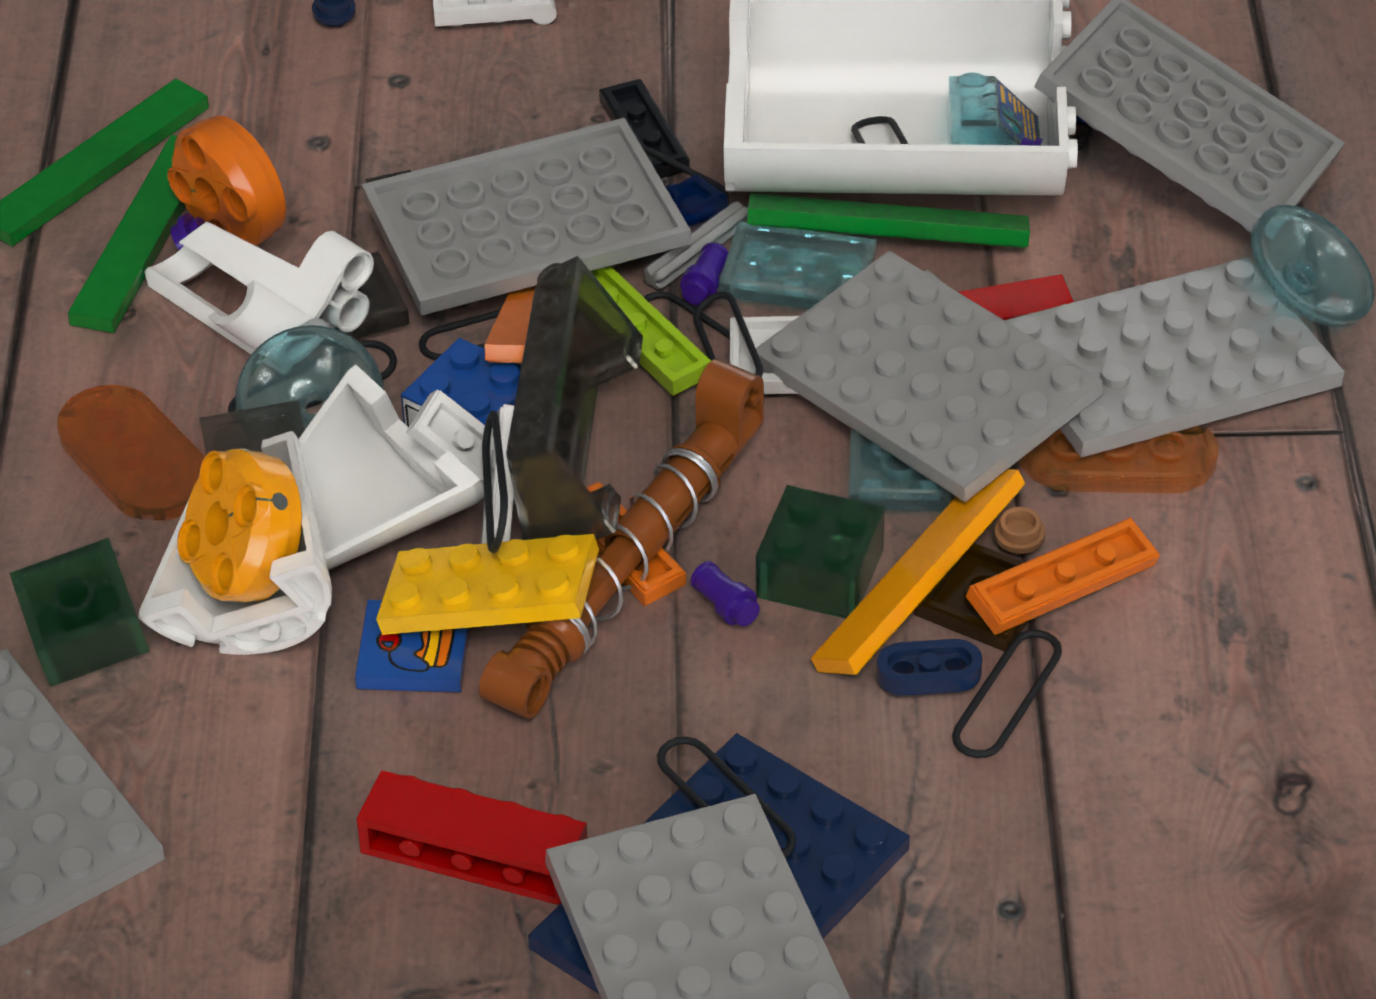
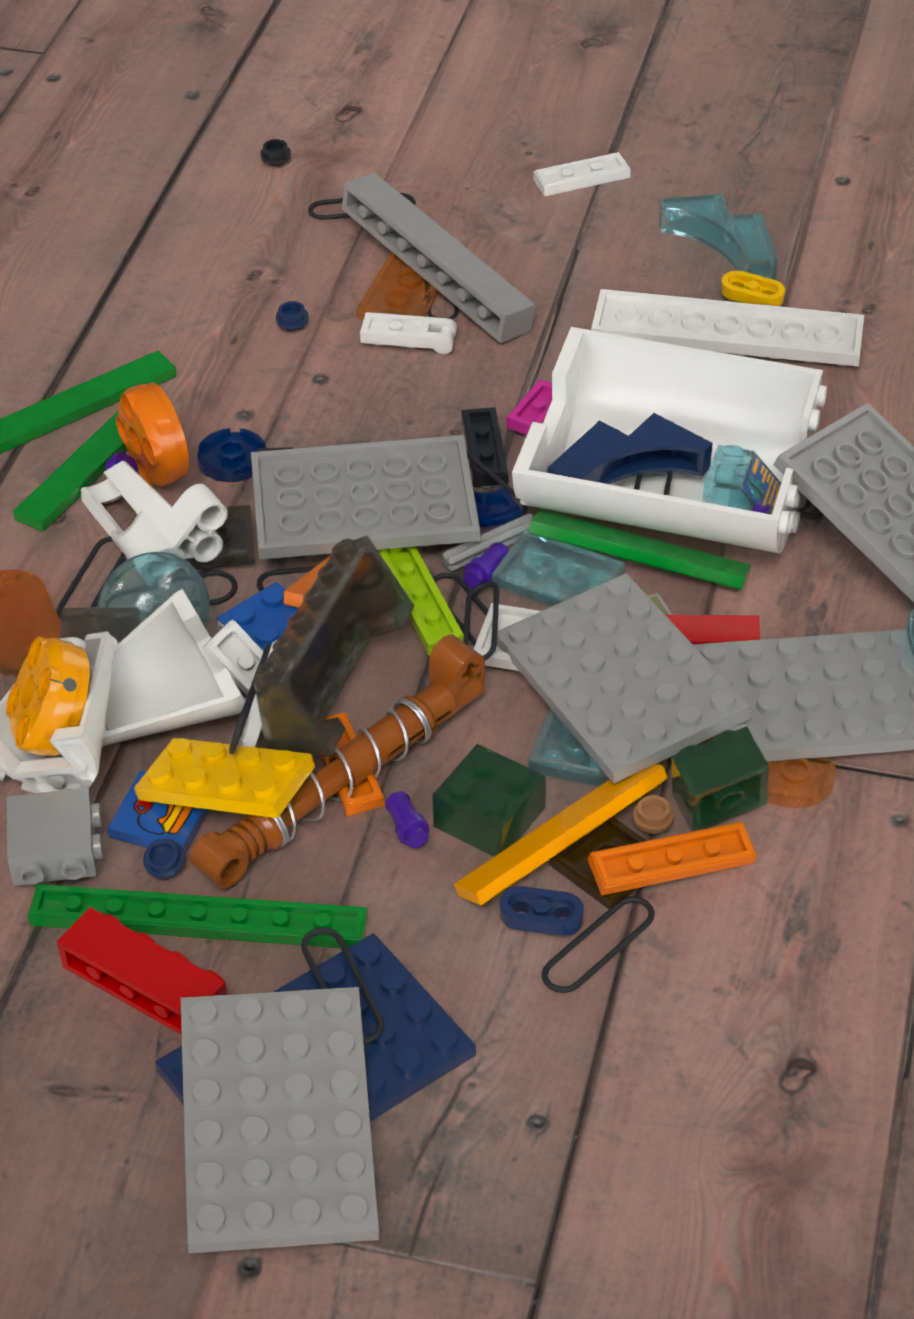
camera: 15 degrees right, 0 degrees up
(185, 377) = (73, 585): none -> black piece
(294, 697) = (53, 836): none -> light grey brick
(324, 195) = (227, 454): none -> clear blue tile
(441, 698) = (164, 858): none -> dark blue plate
(510, 756) = (200, 915): none -> green tile
(696, 71) = (531, 408): none -> dark pink plate
(867, 94) = (653, 447): none -> dark blue arch
(1094, 471) = (719, 779): none -> clear green brick

